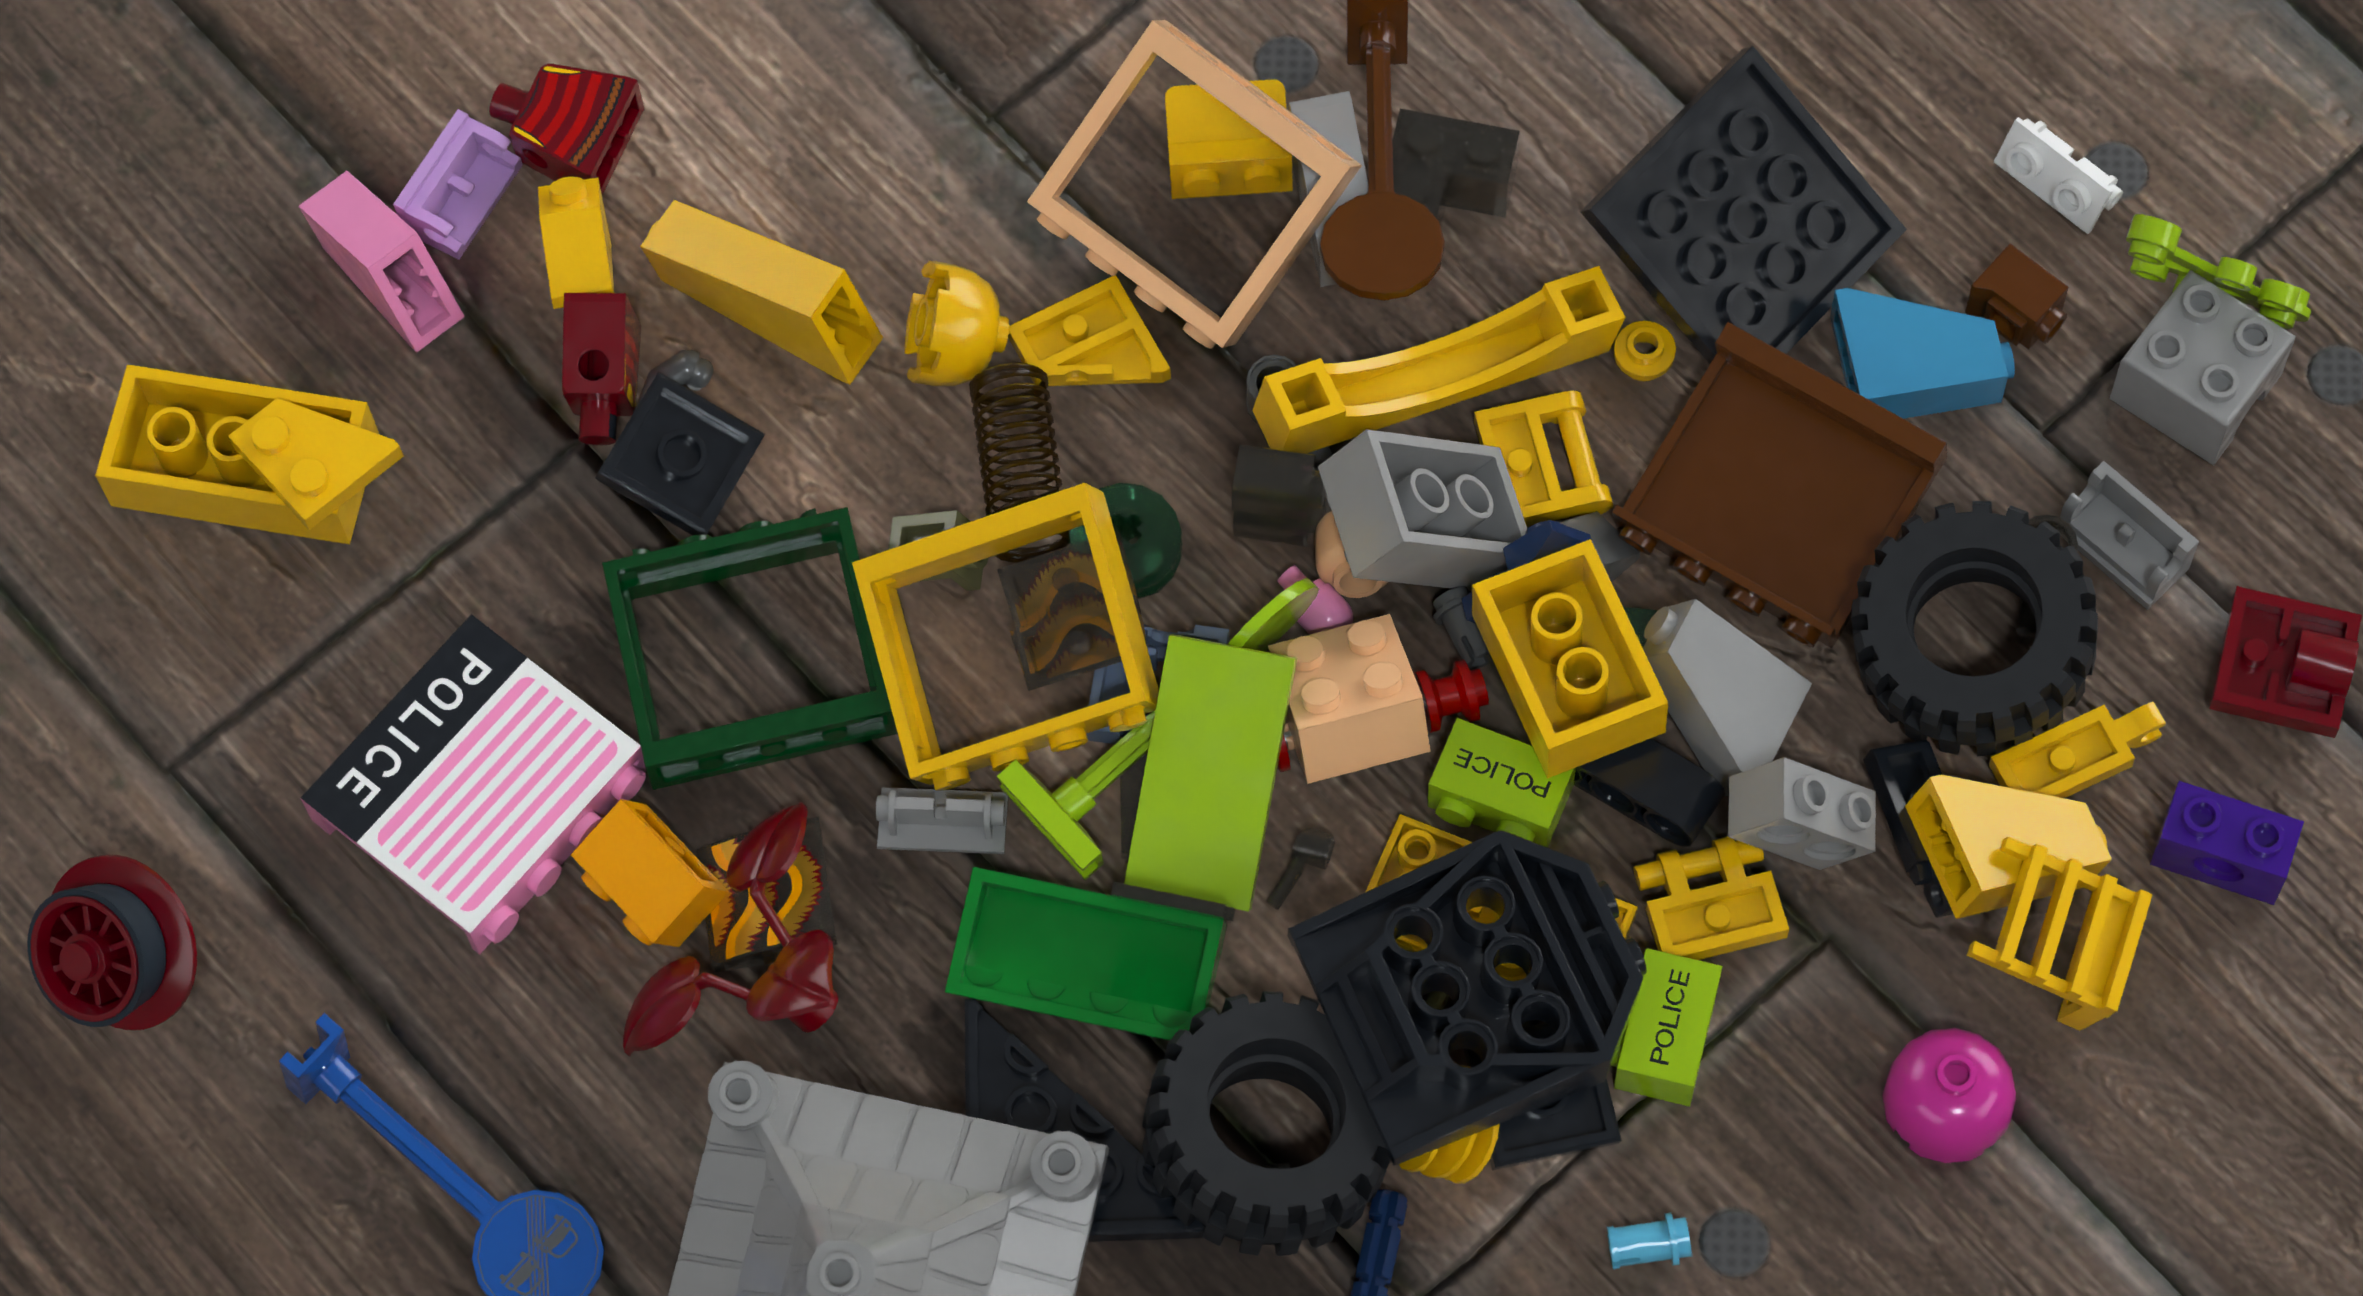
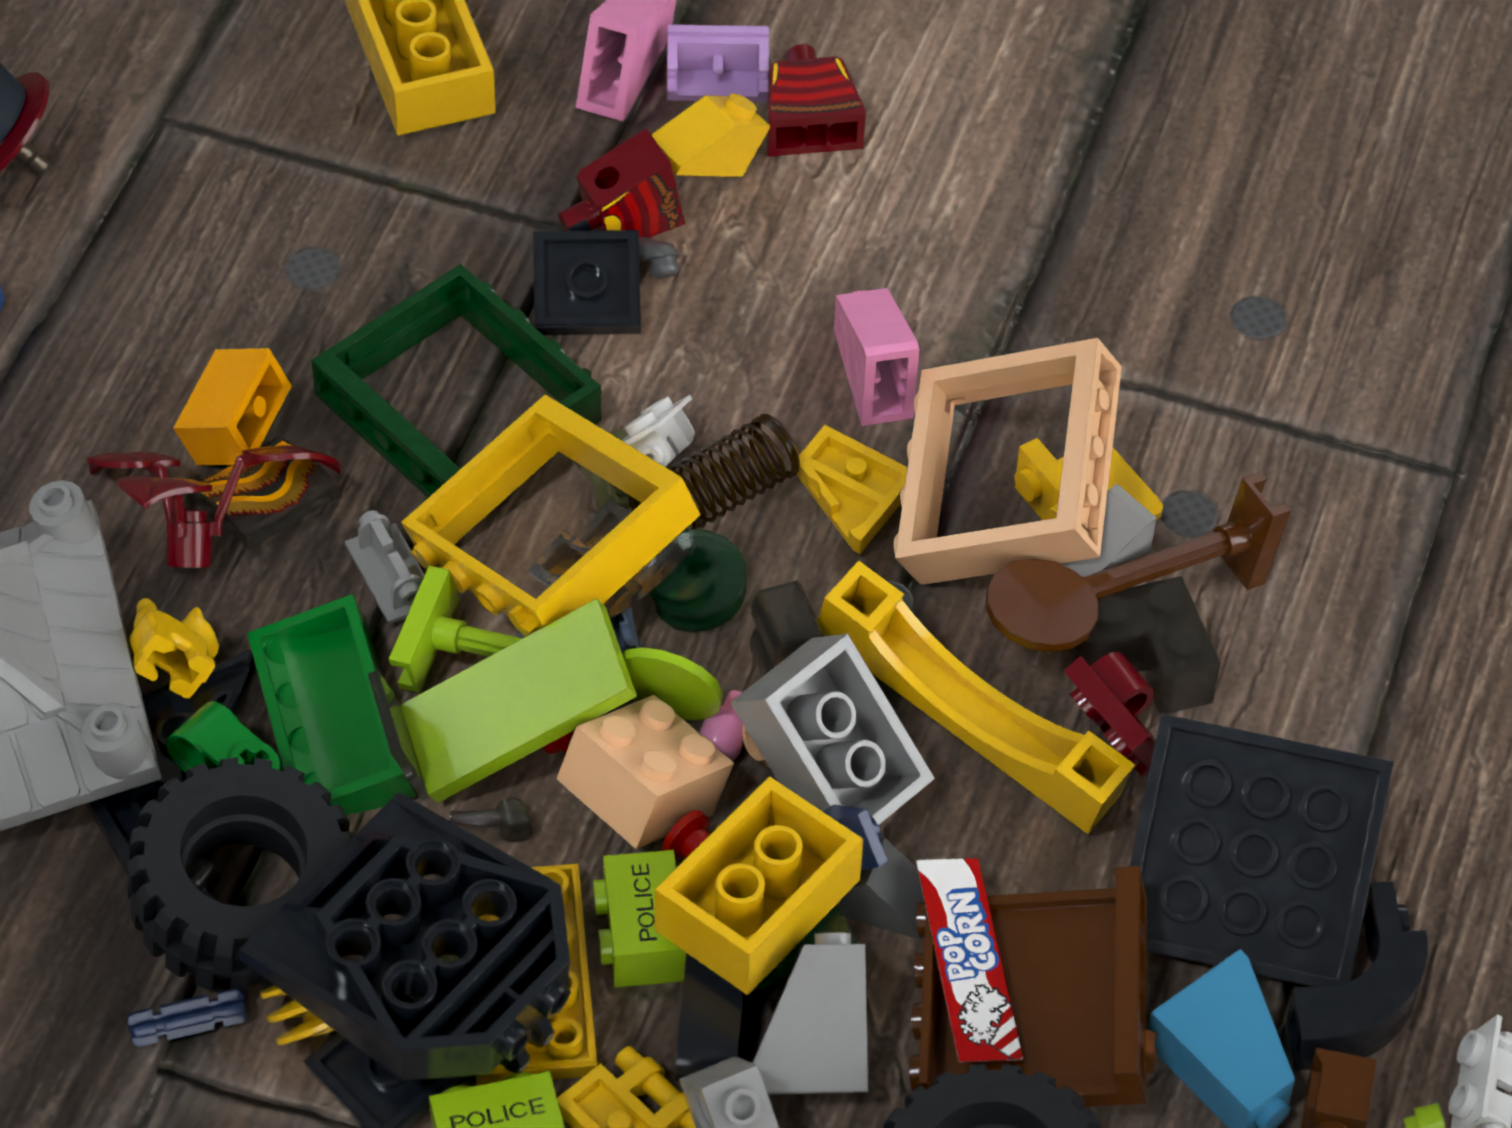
camera: 55 degrees right, 15 degrees down
(311, 457) = (424, 56): yellow wing -> none
(478, 782) = (242, 275): panel -> none
(765, 288) = (752, 270): yellow slope -> none
(933, 485) = (661, 430): none -> white hinge
(939, 1067) = (177, 647): none -> yellow animal
(946, 224) = (877, 355): none -> bright pink slope
(953, 326) = (800, 386): yellow cylinder -> none
(1101, 1077) = (216, 735): none -> green piece
(1499, 247) = (1114, 697): none -> dark red plate
(1525, 450) = (949, 807): yellow plate -> none
(1644, 366) = (1097, 867): yellow plate -> none
(1718, 523) = (969, 960): none -> sticker
(1933, 204) = (1375, 1006): none -> black arch

